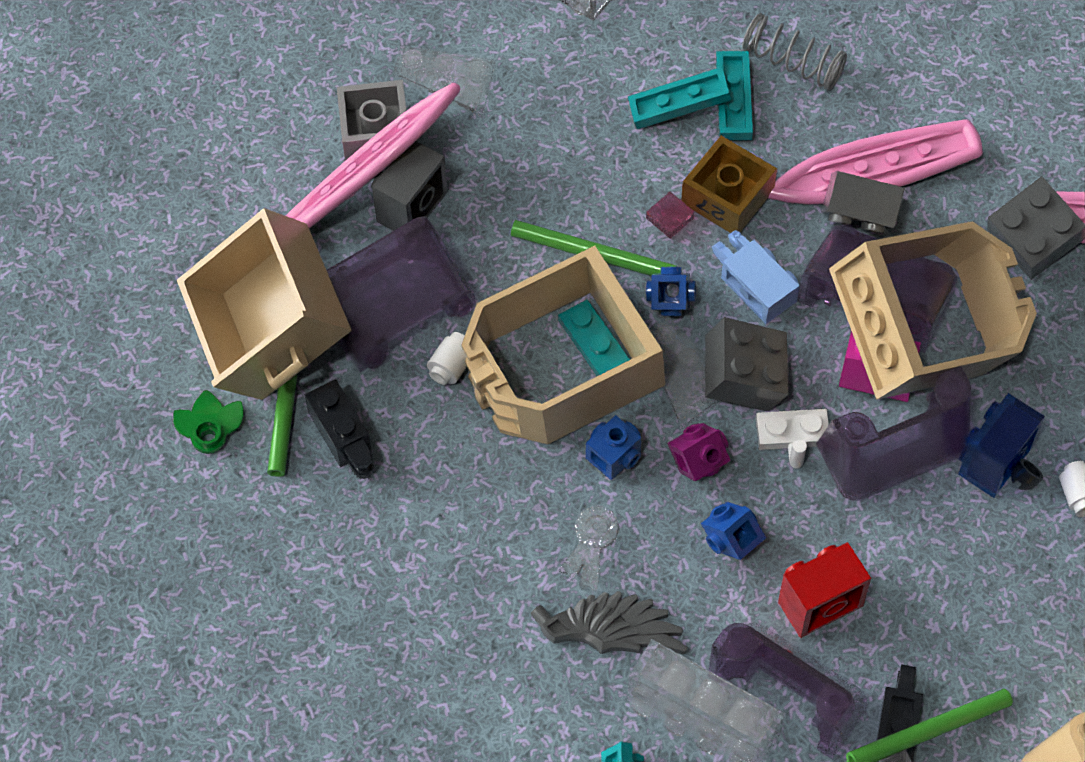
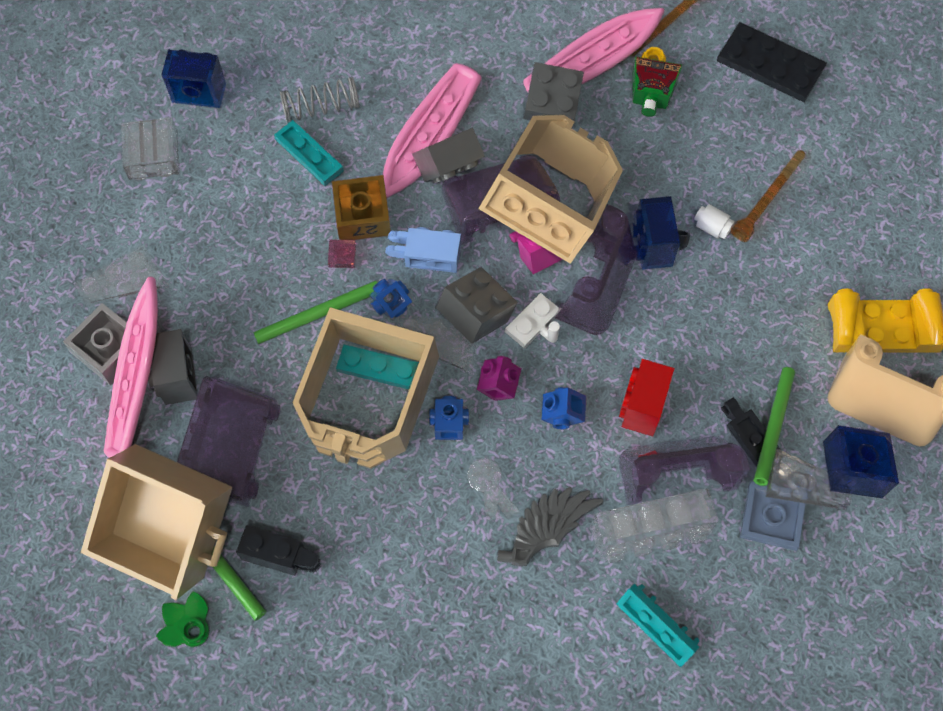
camera: 45 degrees left, 5 degrees up
(448, 360) = (299, 450): white brick -> none
(679, 98) = (280, 179): teal plate -> none

